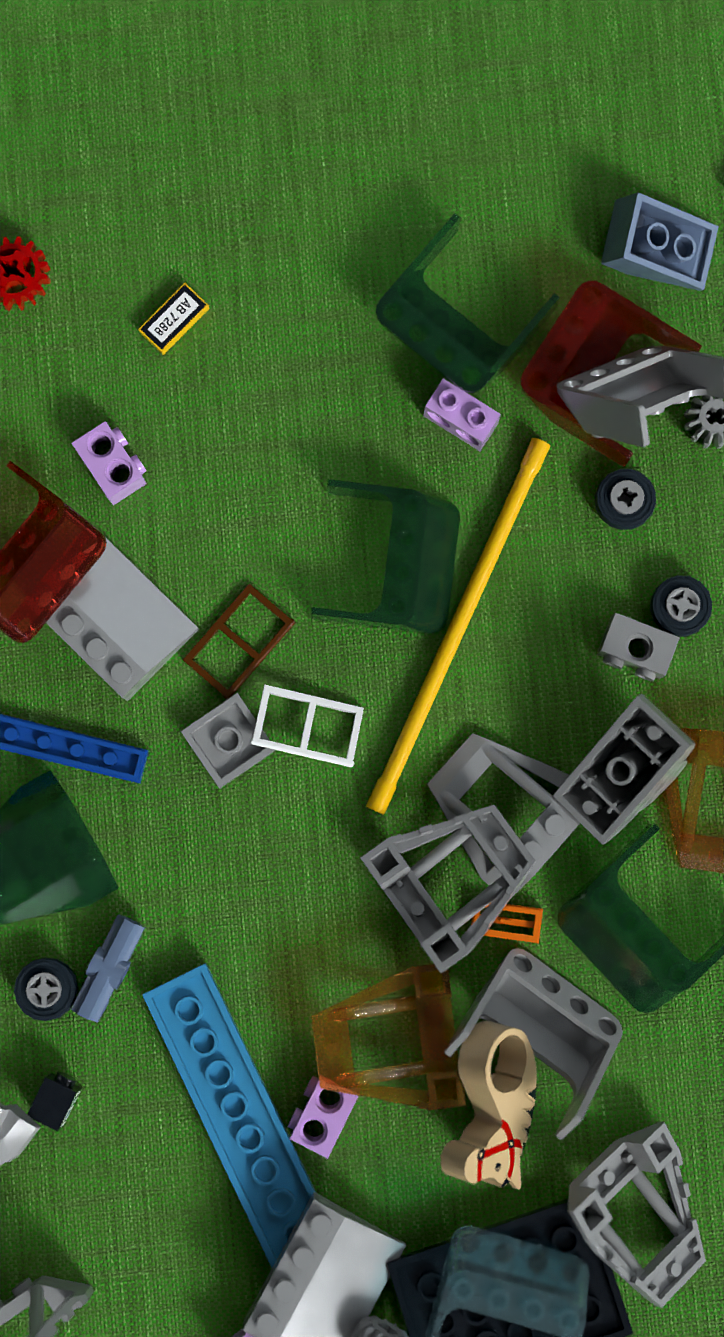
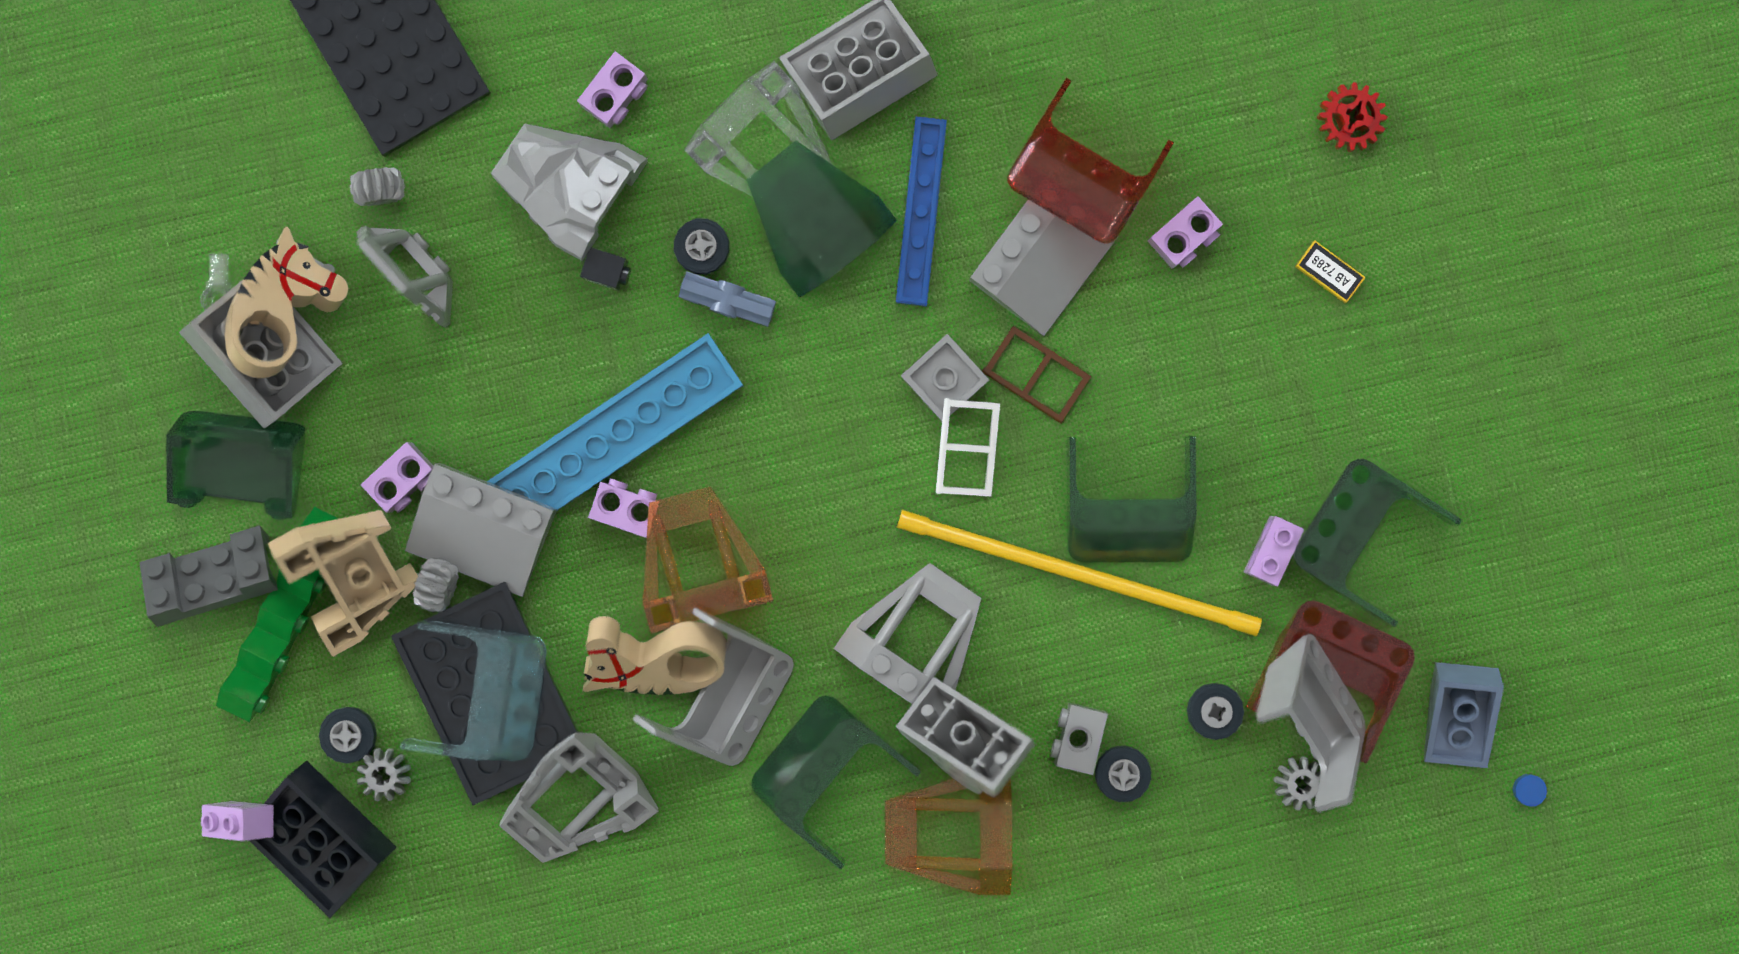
camera: 80 degrees right, 5 degrees up
(417, 907) = (819, 567): light grey windscreen -> none
(536, 924) = (816, 622): orange tile -> none

